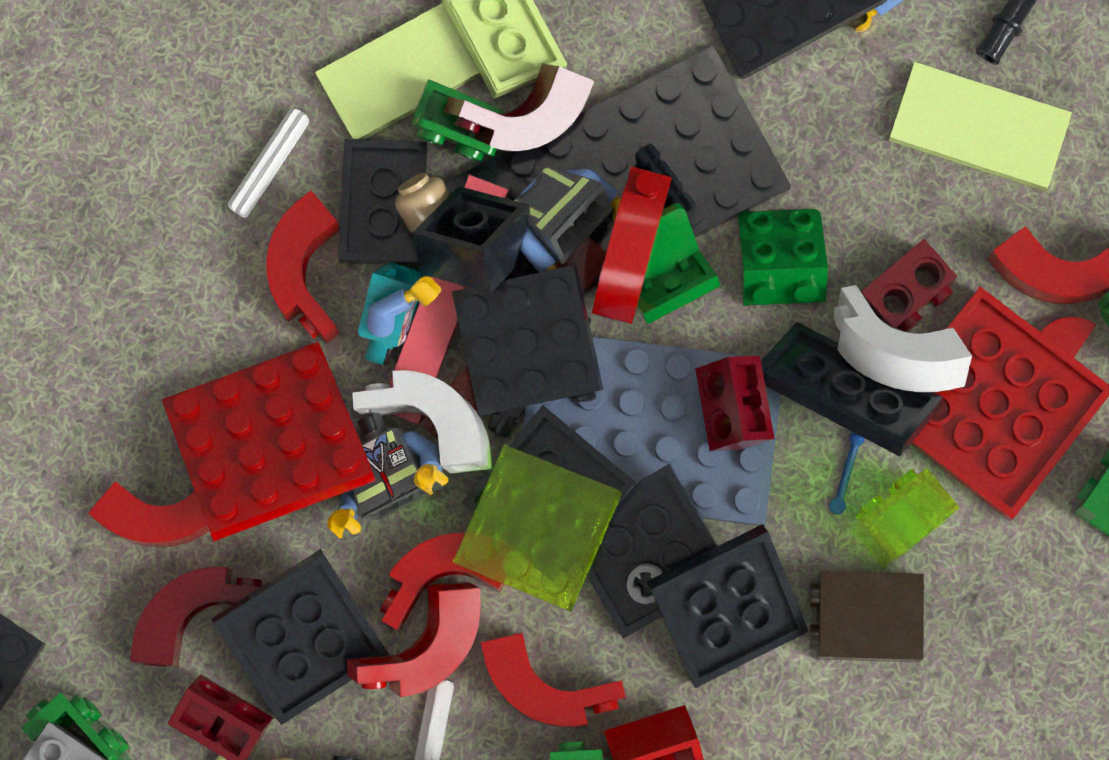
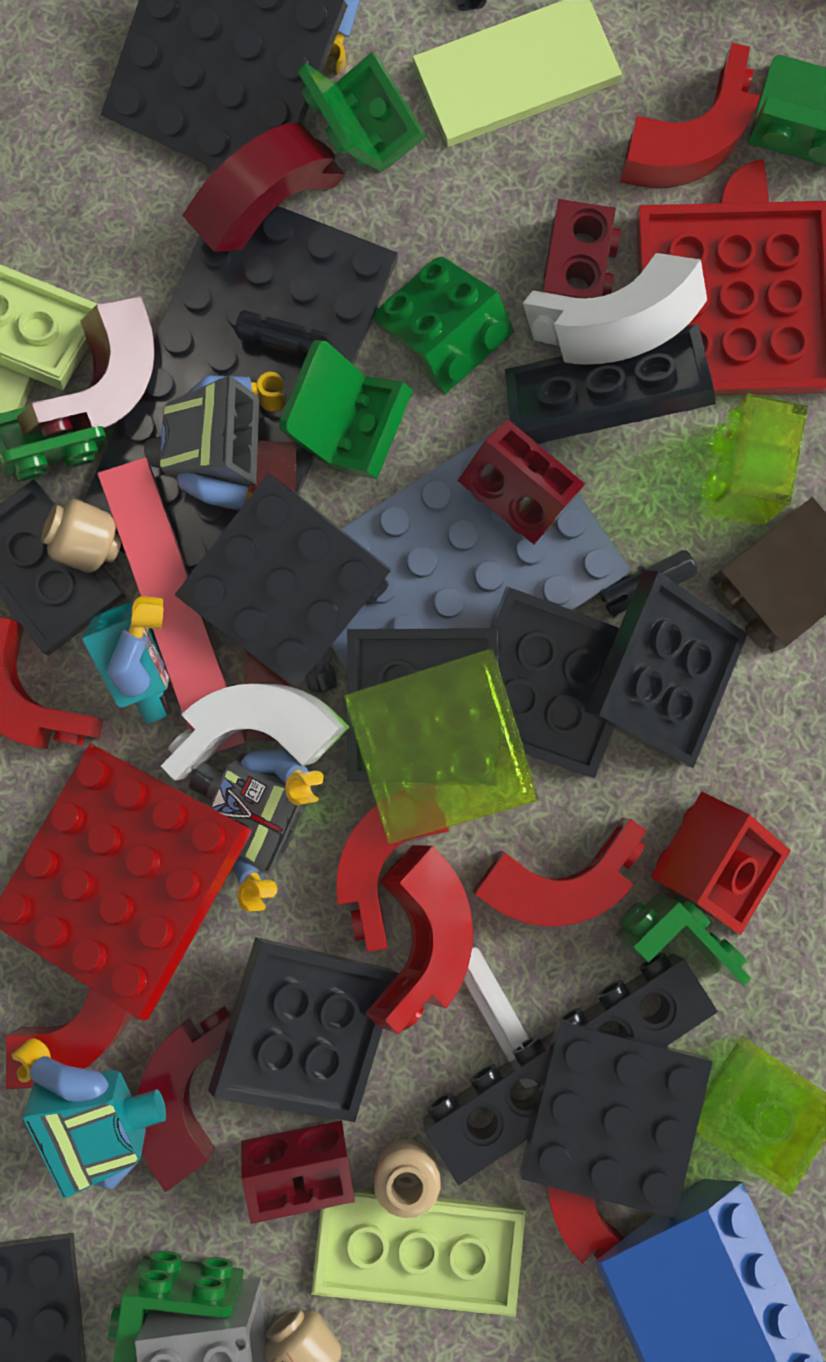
camera: 50 degrees left, 5 degrees up
(124, 571) = (84, 1120): none -> torso
(471, 239) = (150, 529): black slope -> none
(631, 245) = (305, 413): red arch -> none
(636, 591) = (573, 727): light grey bush -> none
(733, 69) = (257, 181): none -> dark red arch
(786, 545) = (676, 567): none -> black axle
(838, 505) = (675, 502): blue hinge -> none
(843, 75) = (363, 113): none -> green bracket

